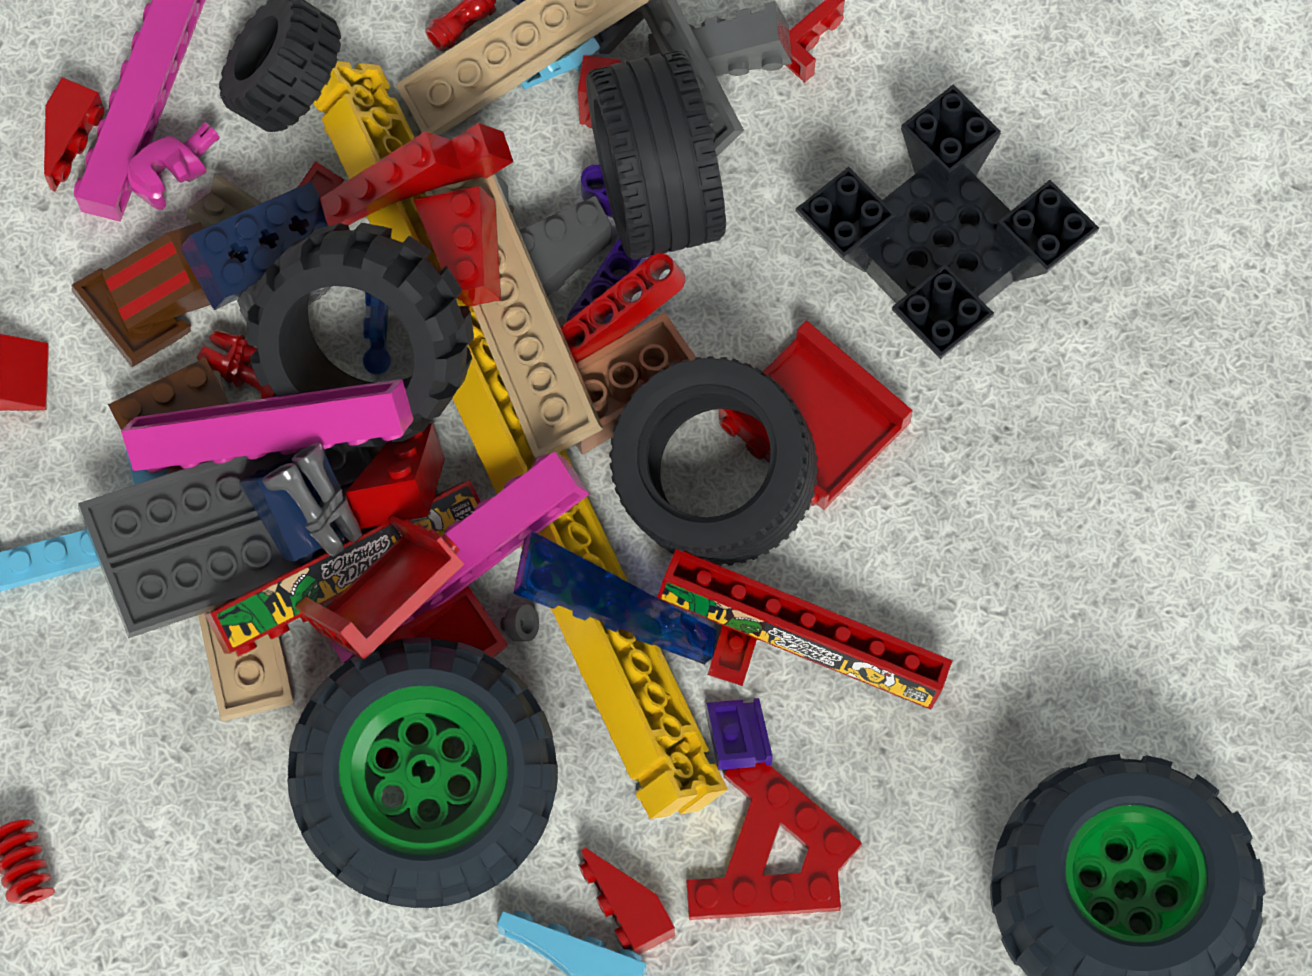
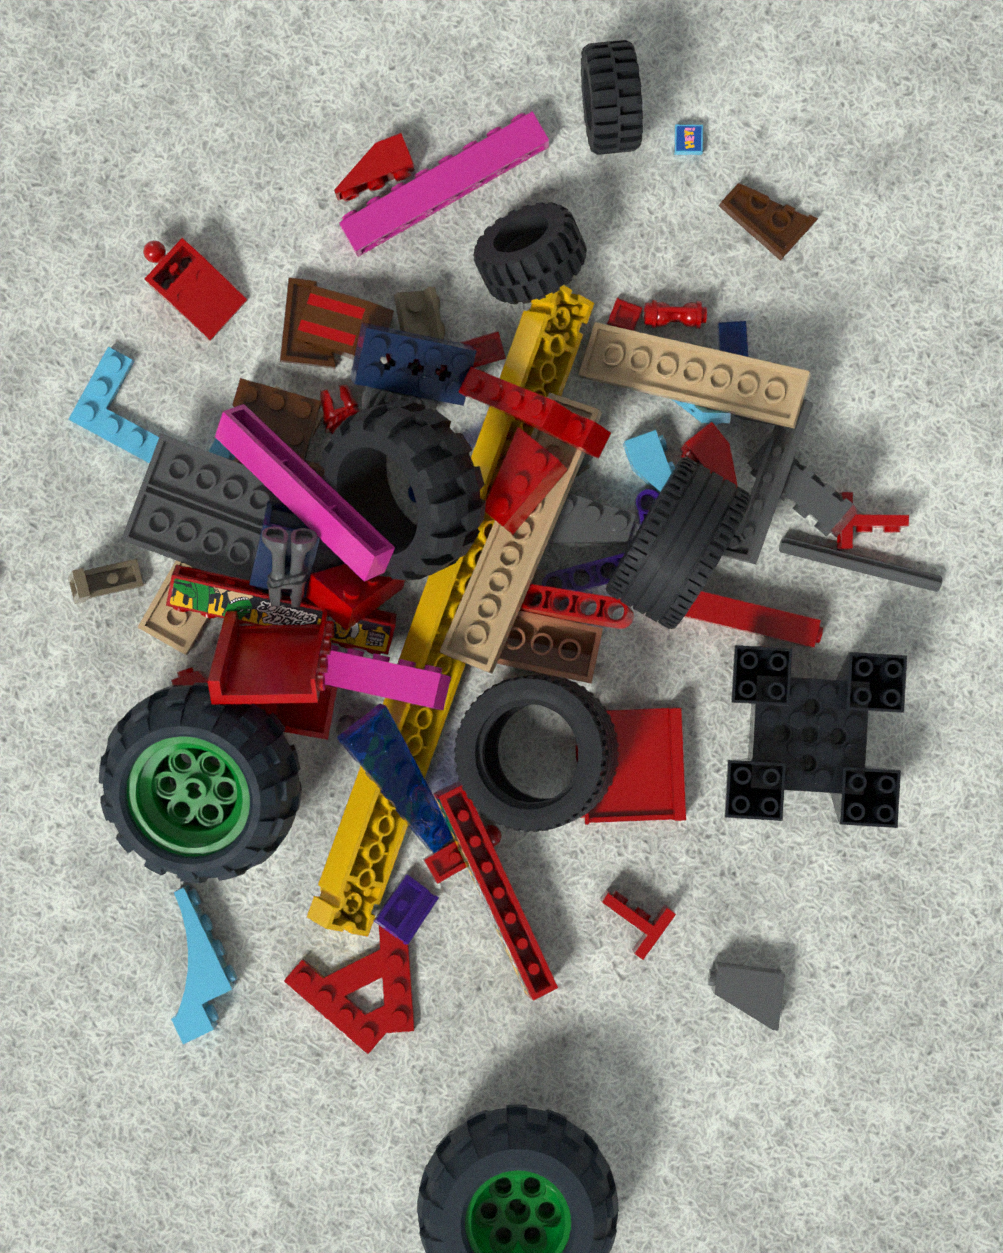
camera: 50 degrees right, 20 degrees up
(134, 715) = (104, 580): none -> dark tan bracket
(168, 153) = (419, 252): dark pink piece -> none
(415, 56) = (624, 315): none -> red tile
(559, 150) = (648, 459): none -> medium azure slope
(634, 907) = (258, 948): red slope -> none
(773, 205) = (756, 619): none -> red brick
(836, 73) = (860, 564): none -> dark grey axle
(963, 541) = (640, 919): none -> red bracket
(1129, 508) = (750, 989): none -> dark grey slope

